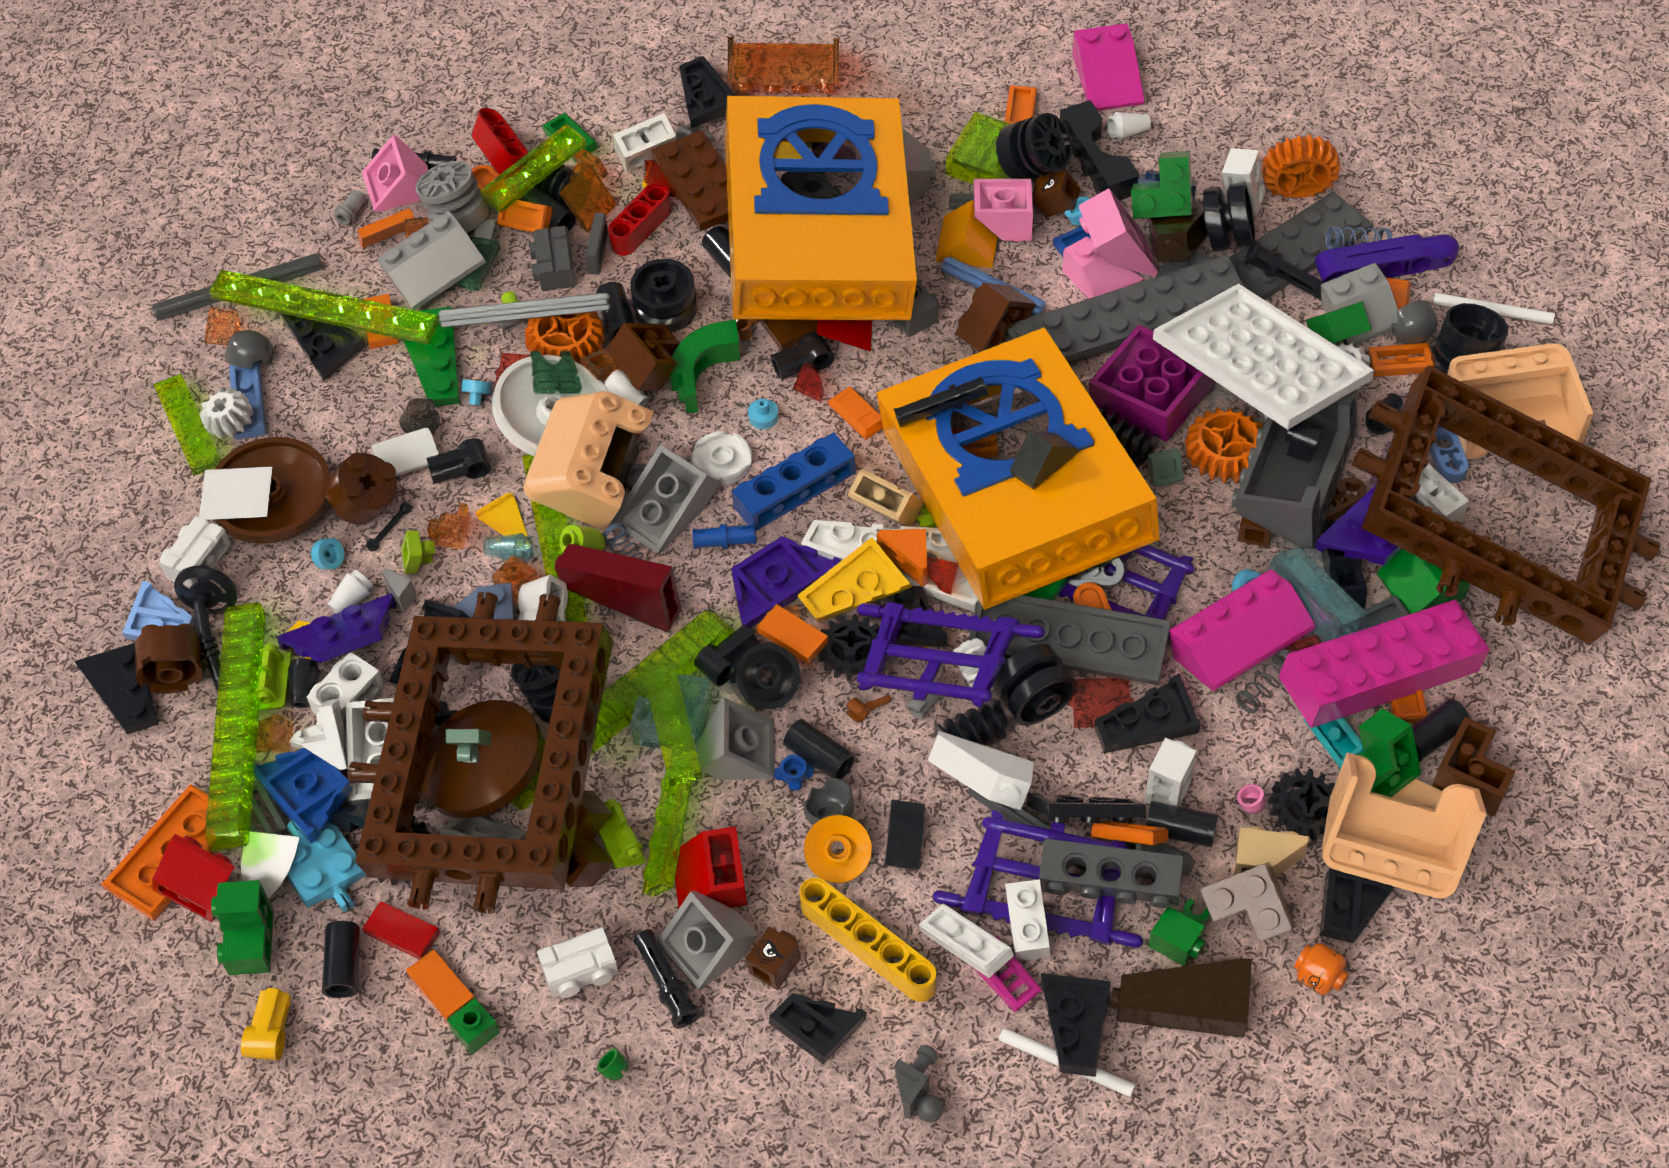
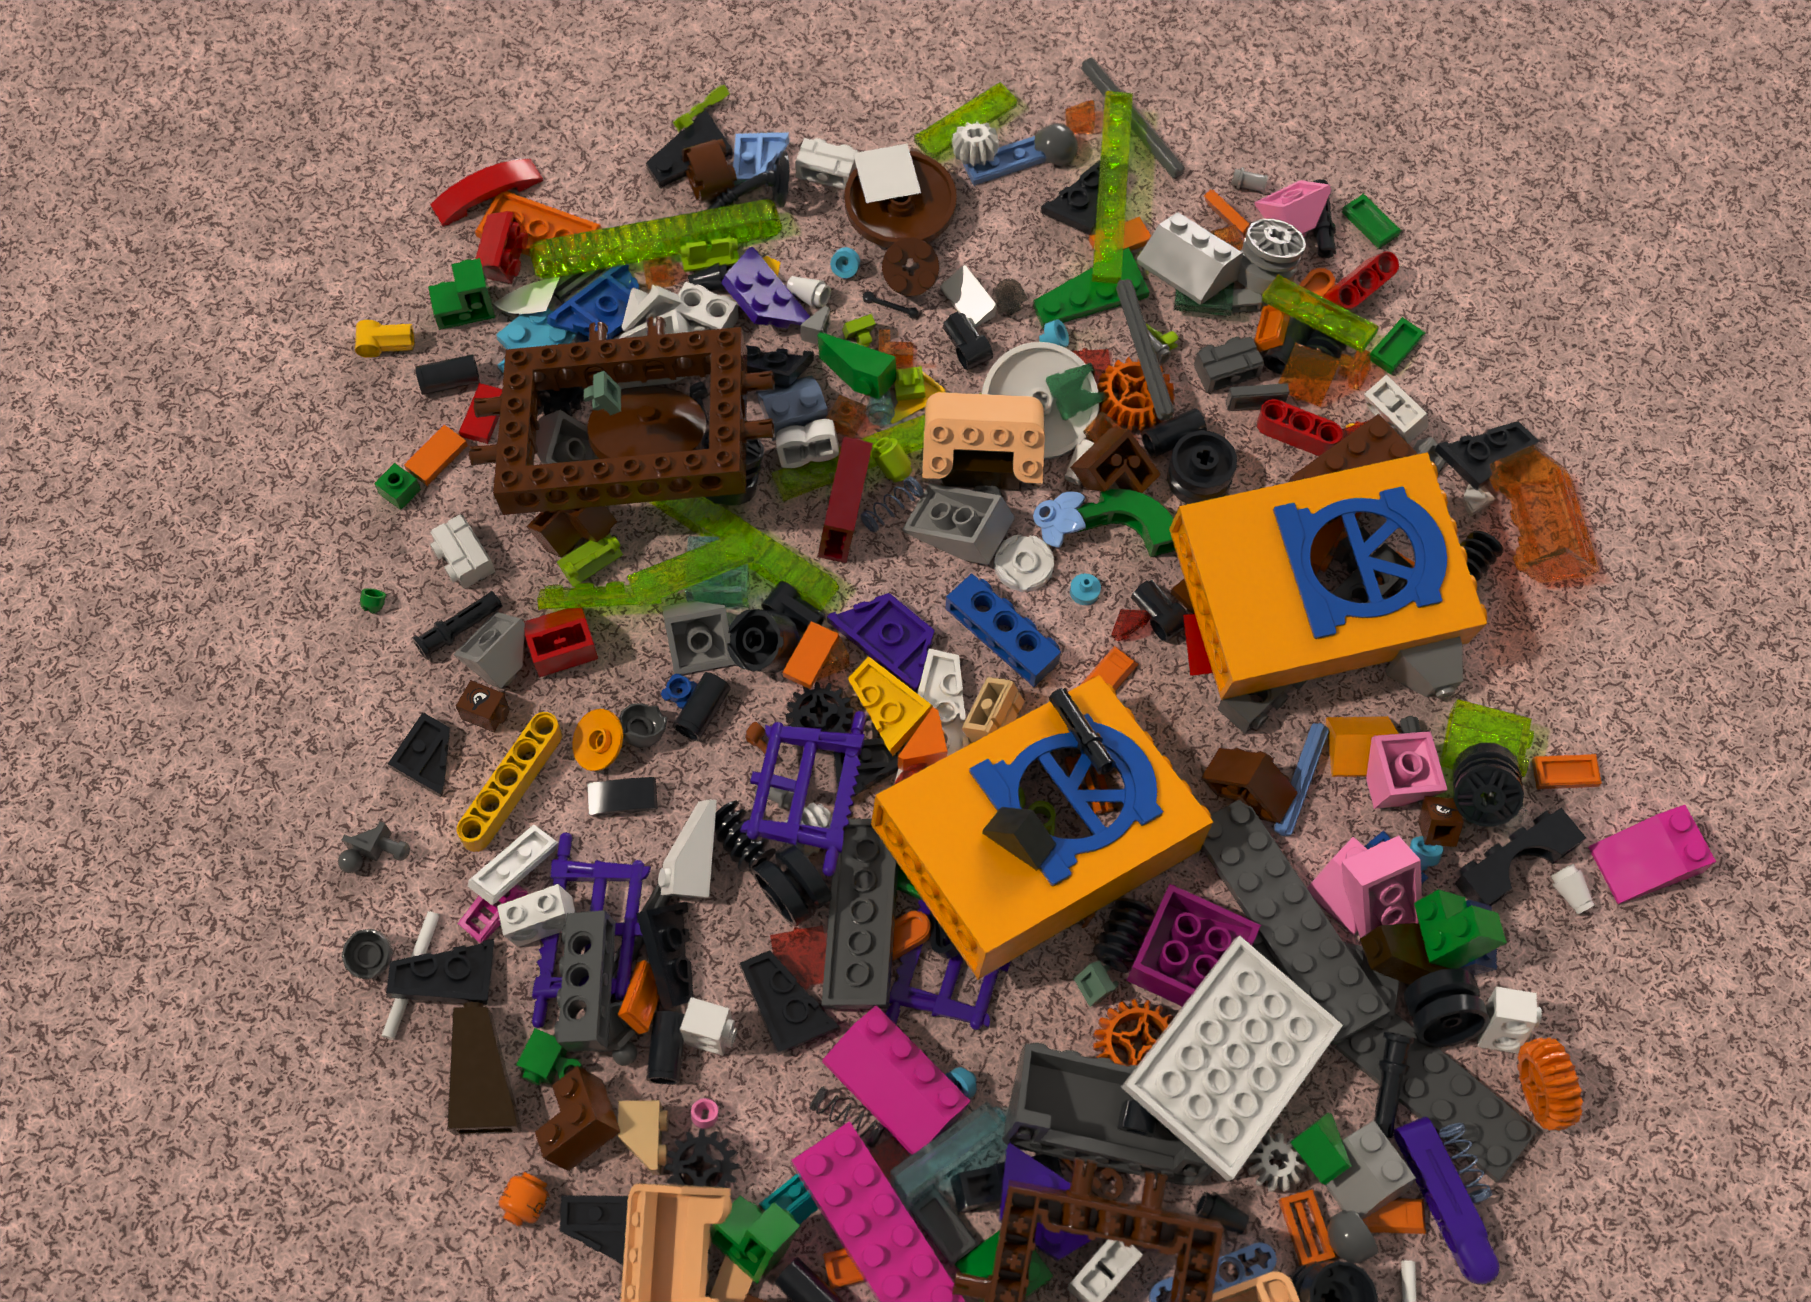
camera: 75 degrees right, 10 degrees up
(61, 654) = (715, 96): none -> lime piece
(95, 903) = (482, 186): none -> red slope
(428, 128) = (1371, 221): none -> green tile
(463, 554) = (858, 366): none -> green slope
(492, 519) = (909, 384): none -> lime tile
(687, 409) = (1062, 518): none -> light blue plate
(724, 536) = (928, 581): blue pin -> none
(1042, 1094) = (367, 954): none -> dark grey hair

